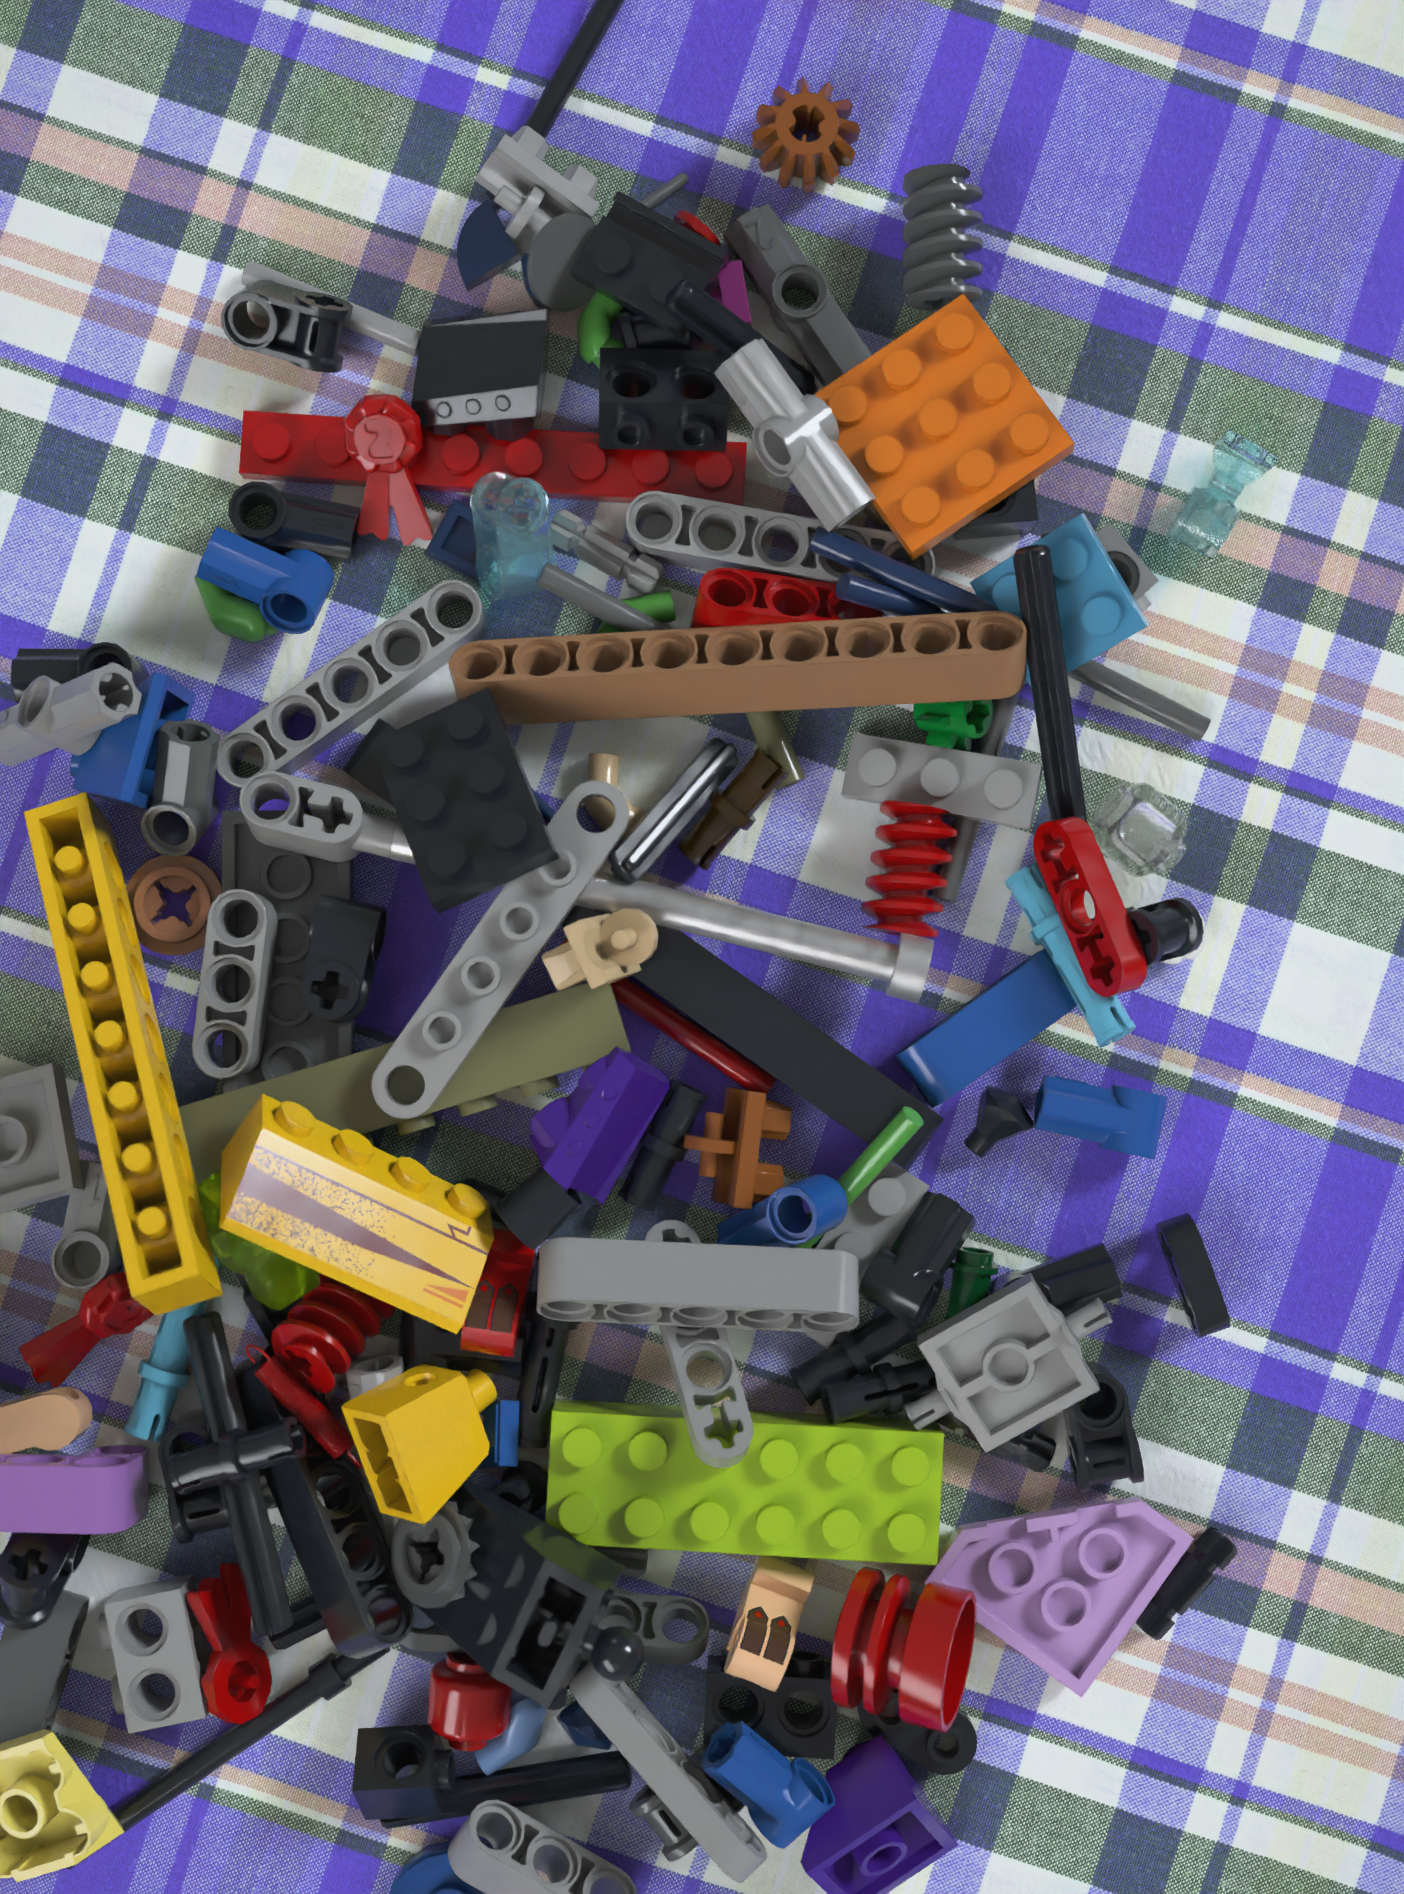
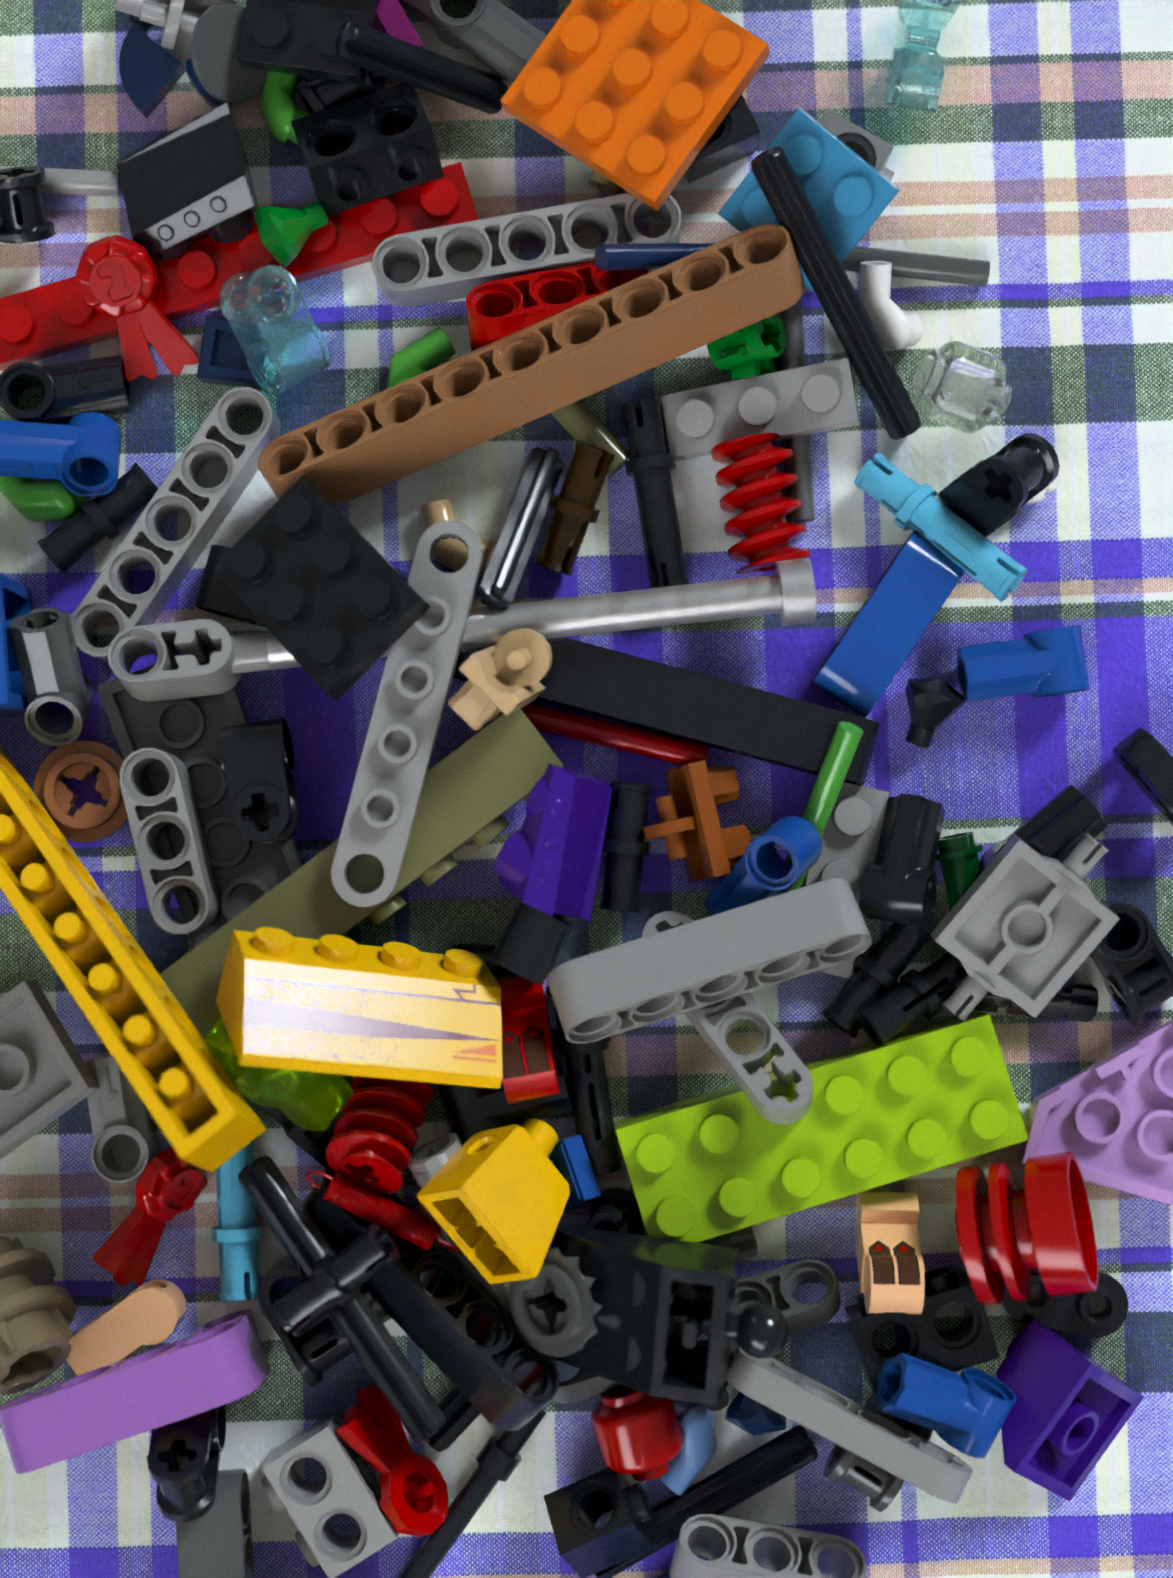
camera: 15 degrees left, 0 degrees up
(282, 654) = (98, 519): none -> black pin
(559, 449) = (287, 229): none -> green rock
(595, 601) = (372, 359): dark grey bar -> none
(606, 552) = (367, 313): light grey axle -> none
(794, 434) = (503, 132): light grey piece -> none
(813, 824) = (654, 492): none -> black pin
(897, 573) = (645, 228): dark blue bar -> none
(1068, 849) = (922, 430): red beam -> none
(1094, 743) = (892, 325): none -> white arm

